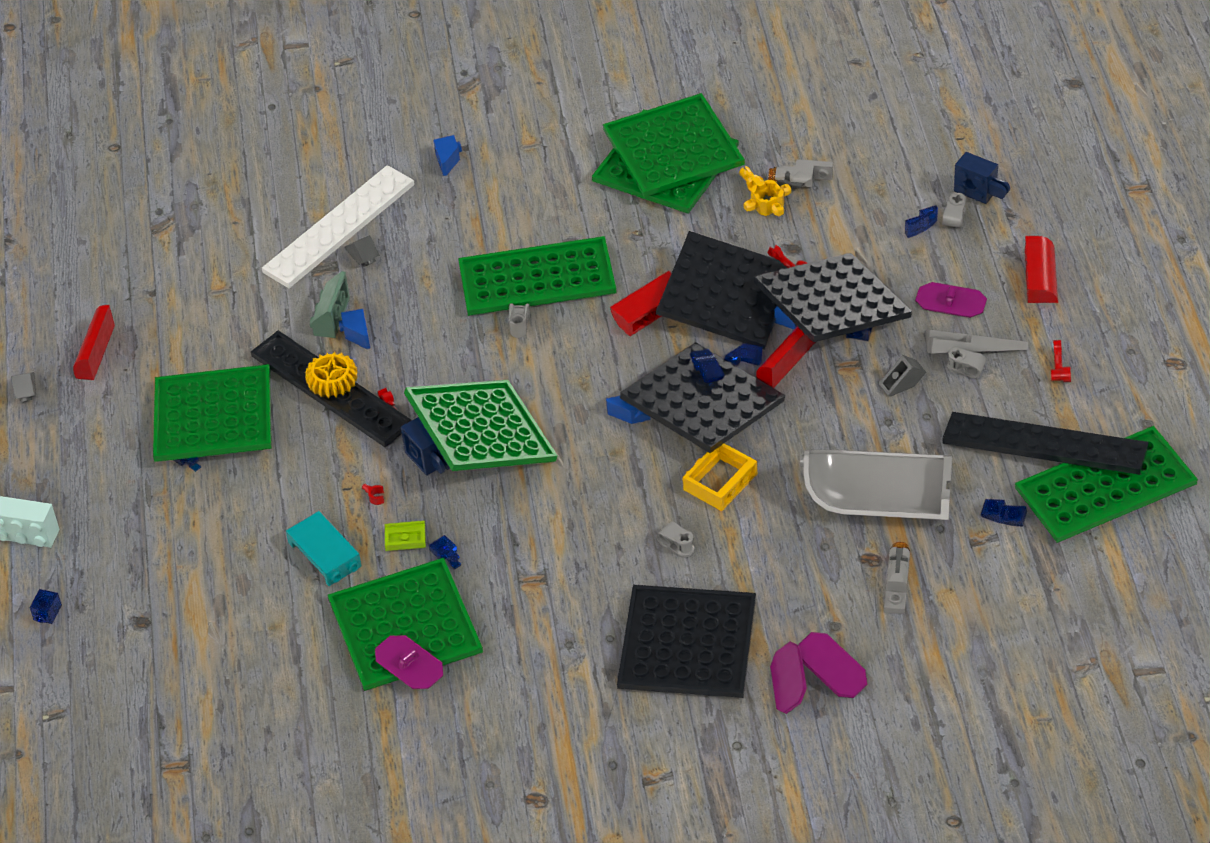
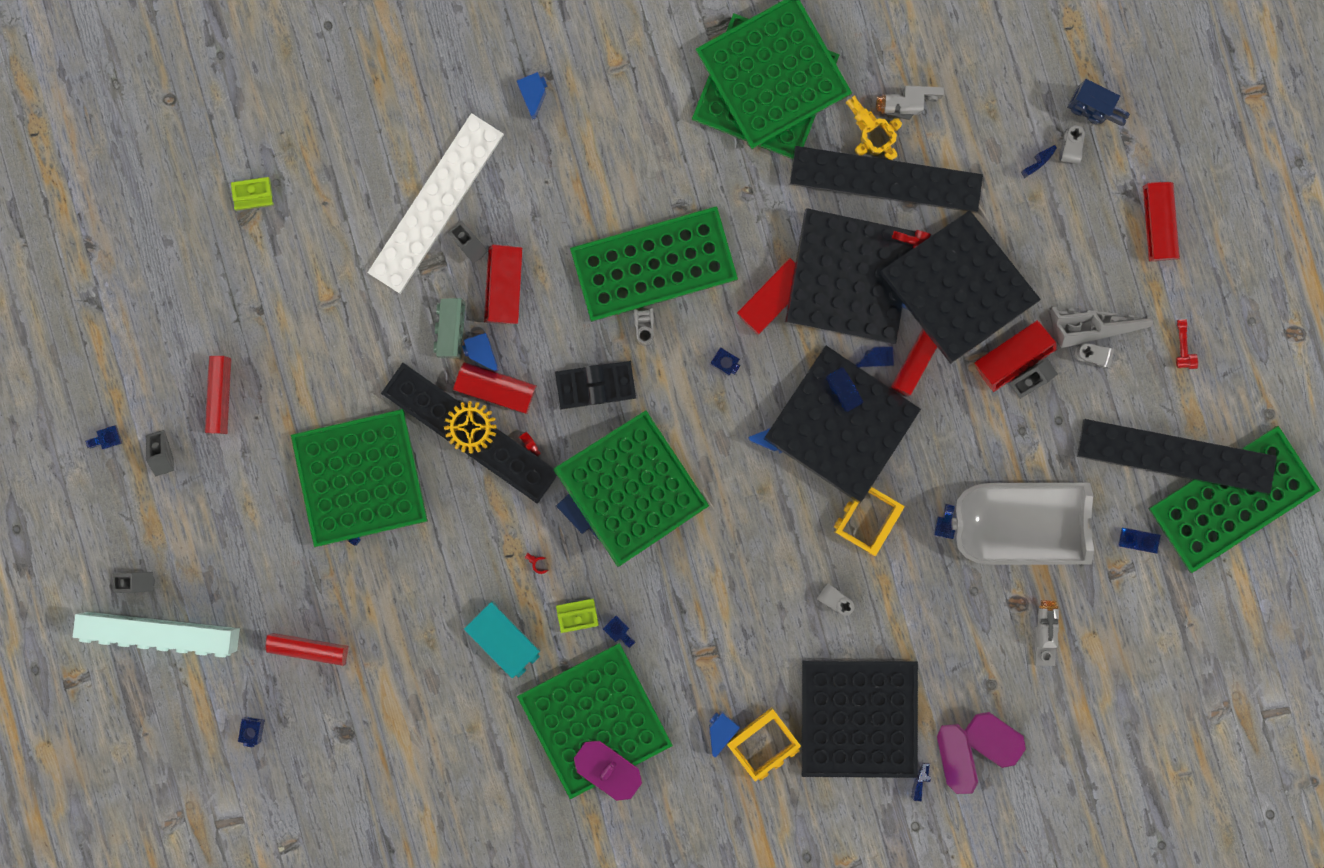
camera: 15 degrees left, 40 degrees up
(122, 540) = (306, 649): none -> red brick
(169, 208) = (252, 193): none -> lime plate
(366, 358) = (494, 387): none -> red brick
(388, 281) = (503, 284): none -> red brick
(462, 358) = (595, 385): none -> black plate
(537, 640) = (721, 731): none -> blue slope
(572, 638) = (774, 762): none -> yellow window
(592, 348) = (716, 362): none -> clear blue brick
(746, 697) = (923, 776): none -> clear blue slope
(771, 226) = (886, 179): none -> black plate
(797, 487) = (943, 524): none -> clear blue plate
(877, 361) = (1015, 356): none -> red brick
(951, 299) = (1073, 264): magenta shield -> none

